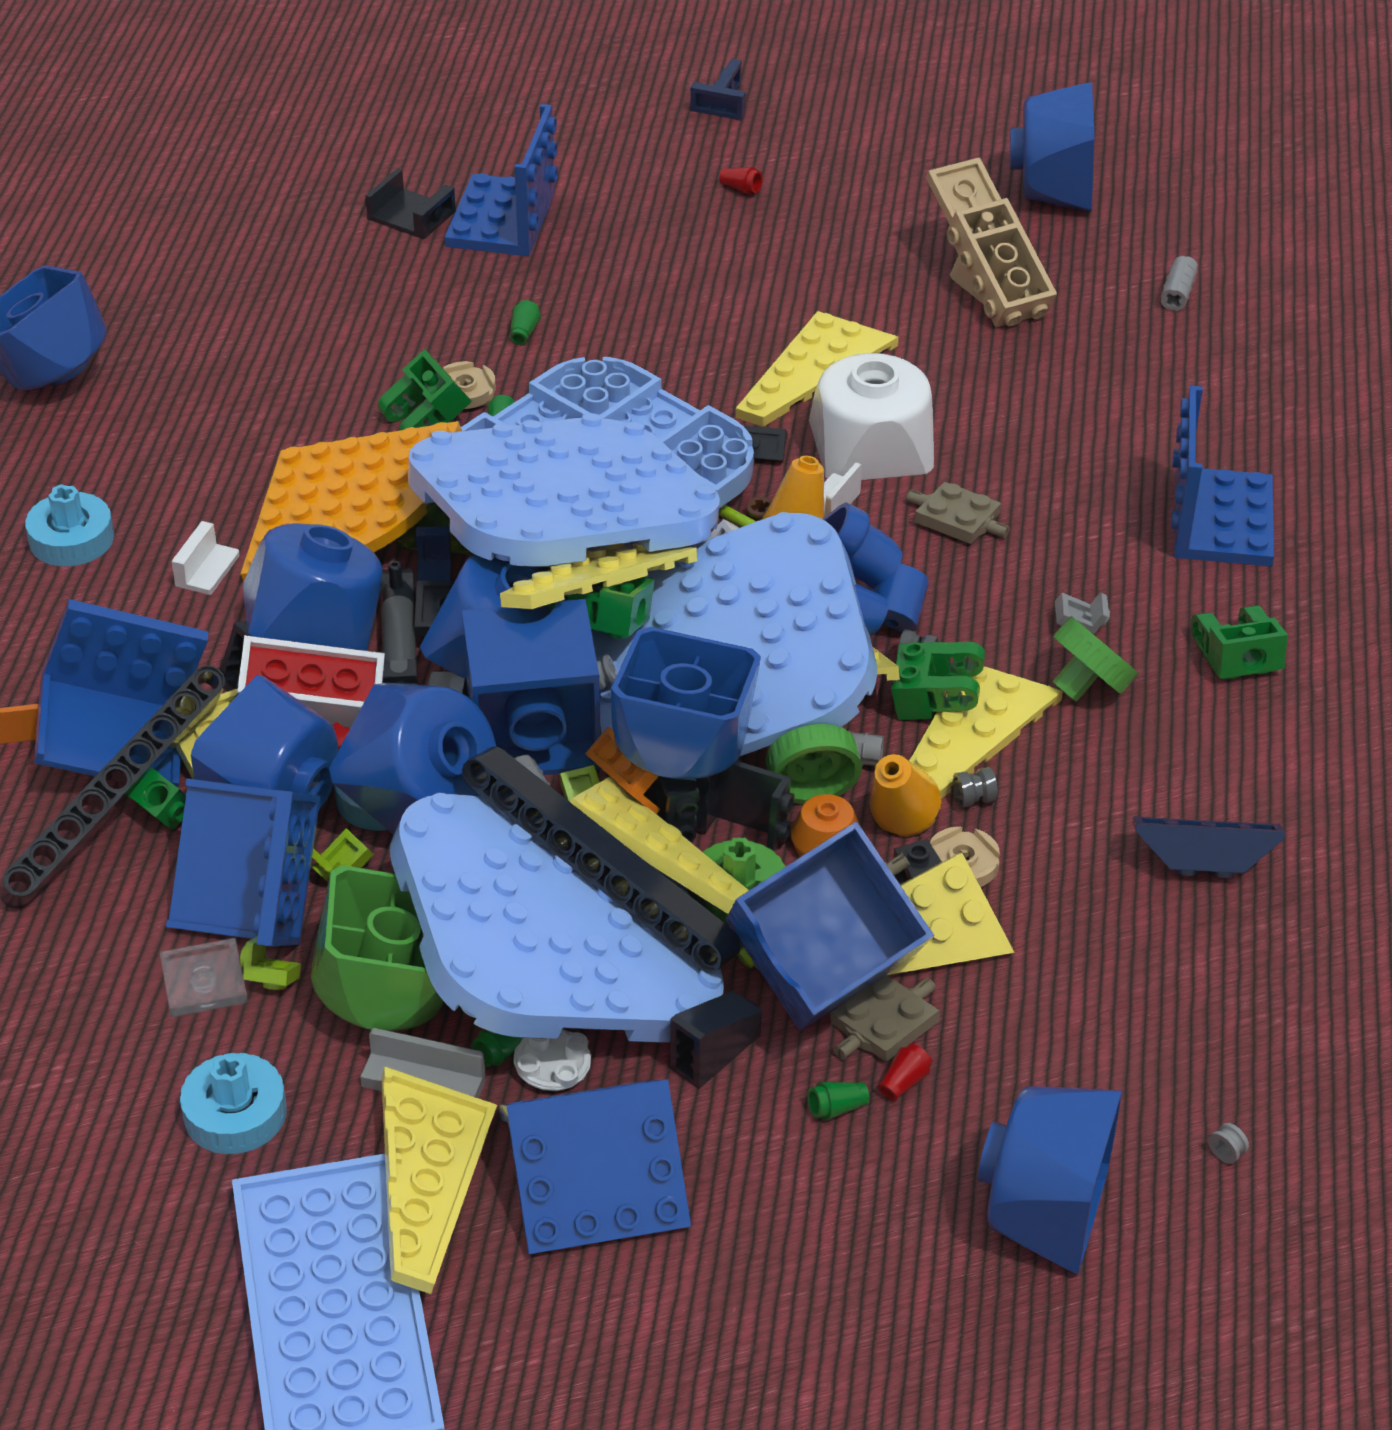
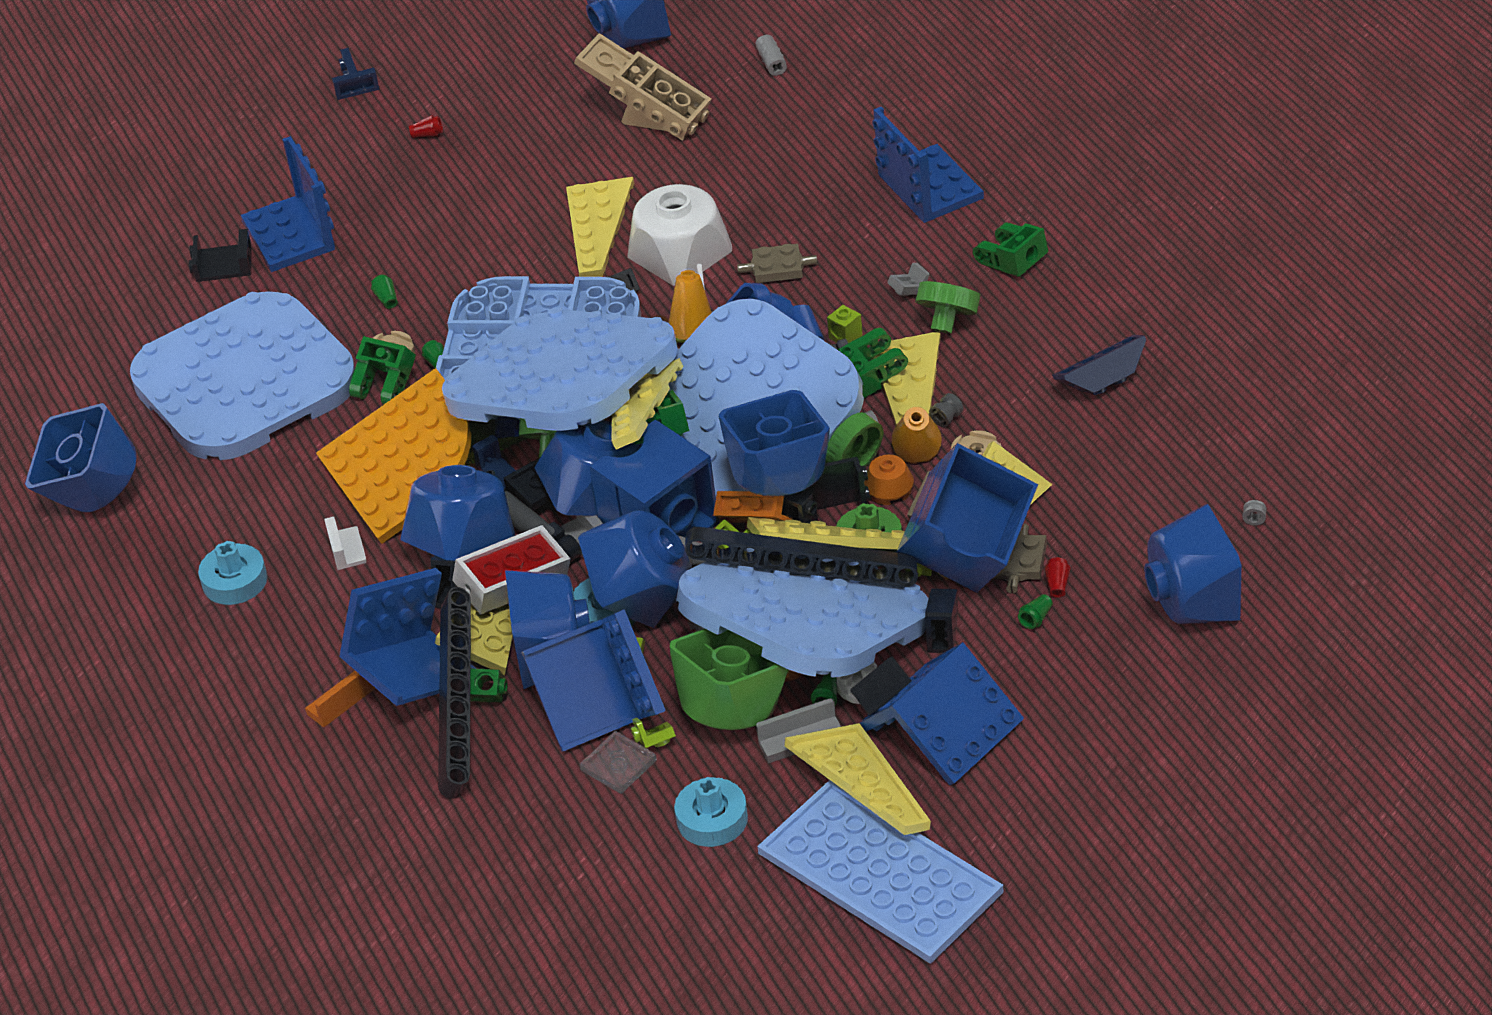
camera: 30 degrees left, 0 degrees up
(298, 331) = (242, 374): none -> light blue plate
(550, 1073) = (880, 685): none -> black panel
(955, 620) = (844, 324): none -> lime brick

